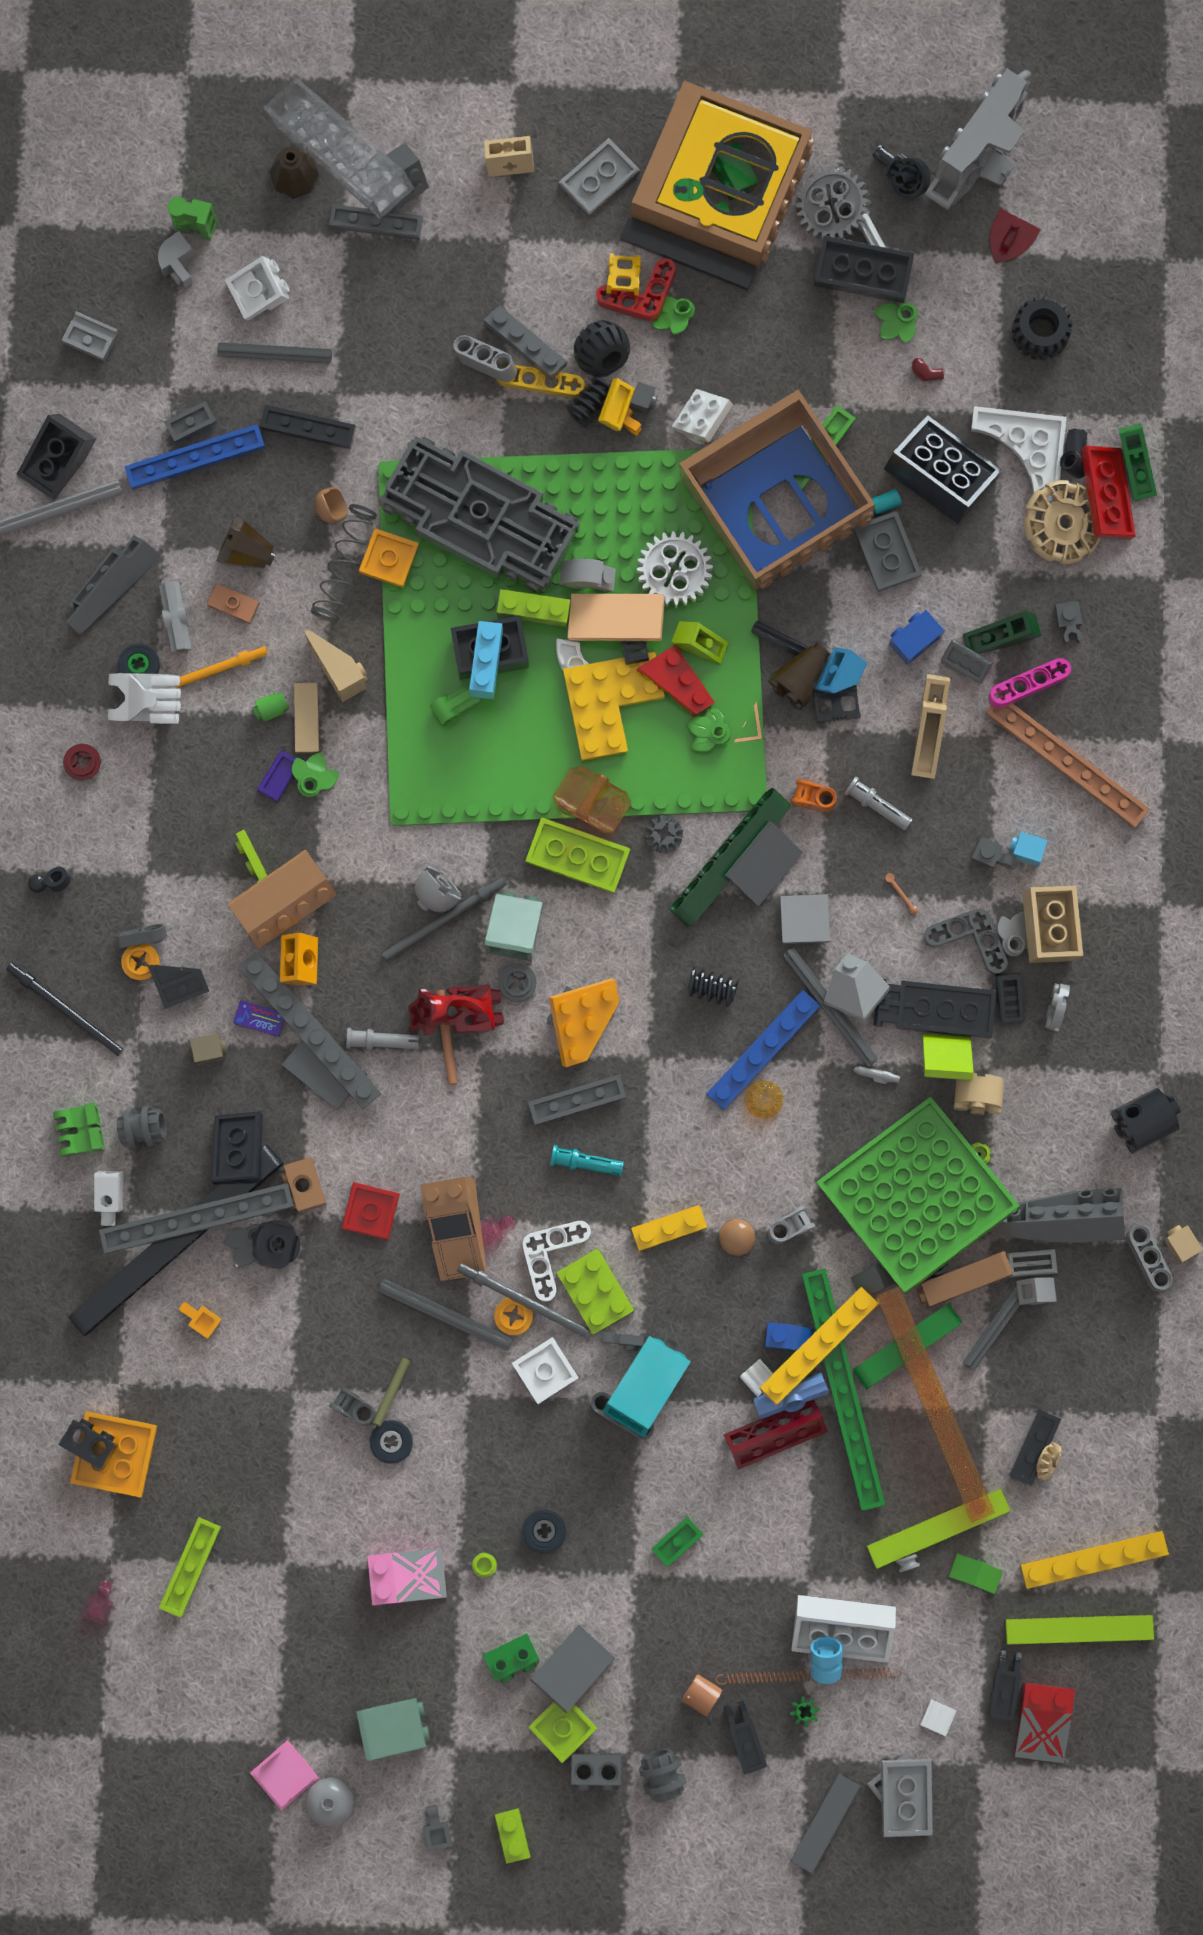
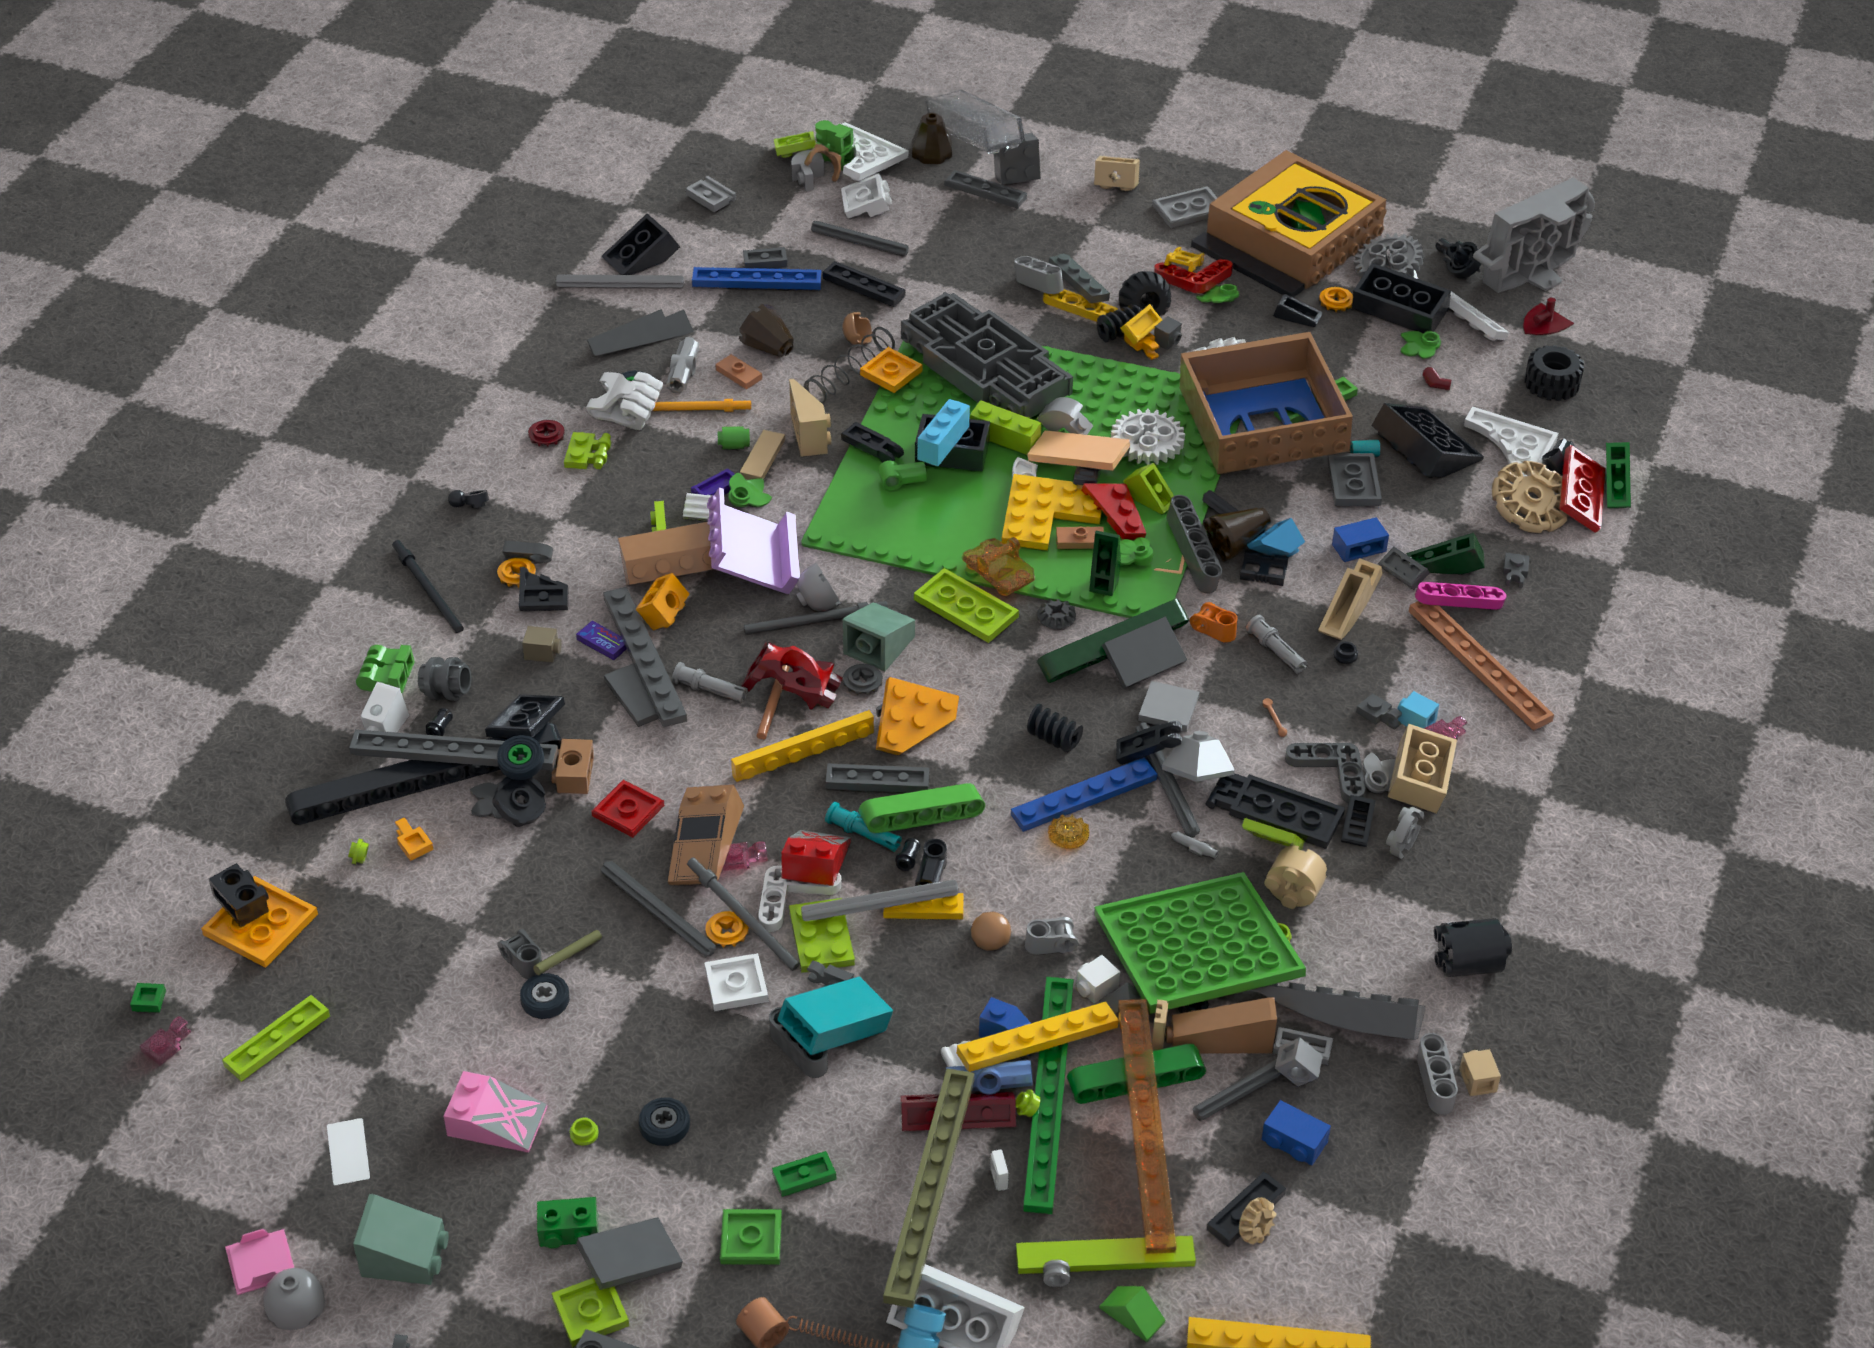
camera: 20 degrees right, 35 degrees down
(61, 1567) = (148, 997): none -> green plate
(125, 772) = (580, 450): none -> lime plate
(148, 225) = (799, 142): none -> lime plate
(159, 1177) = (438, 724): none -> black pin
(161, 1349) = (358, 851): none -> lime plate
(185, 241) = (834, 157): none -> medium nougat cap
(236, 205) = (871, 154): none -> white plate
(270, 1203) = (524, 768): none -> black bush
(274, 814) = (696, 507): none -> white piece
(301, 1649) = (348, 1151): none -> white sticker
(355, 860) = (753, 546): none -> panel
(407, 668) = (872, 442): none -> black hinge
(491, 1095) = (802, 746): none -> yellow plate
(559, 1212) = (814, 857): none -> red slope
(631, 1127) = (921, 808): none -> bright green beam
(634, 1246) = (879, 900): none -> light grey axle
(636, 1178) = (906, 858): none -> black pin
(653, 728) = (1076, 537): none -> nougat plate
(657, 1613) = (751, 1236): none -> bright green tile
(662, 1189) = (932, 863): none -> black piece
(696, 778) = (1105, 563): none -> dark green slope
(751, 320) = (1294, 310): none -> black slope
(764, 691) = (1194, 544): none -> dark grey beam
(789, 1536) = (928, 1189): none -> olive plate
(800, 270) = (1343, 296): none -> light orange gear
(801, 980) = (1148, 741): none -> black hinge
(830, 1483) = (999, 1170): none -> white tile
(832, 1413) = (1027, 1103): none -> lime plate
(843, 1260) = (1097, 979): none -> white brick
(916, 1300) = (1159, 1025): none -> tan tile
(937, 259) = (1477, 319): none -> white plate
(943, 791) = (1345, 652): none -> black plate
(1053, 1361) = (1295, 1133): none -> blue brick
(1056, 866) = (1452, 729): none -> clear pink plate

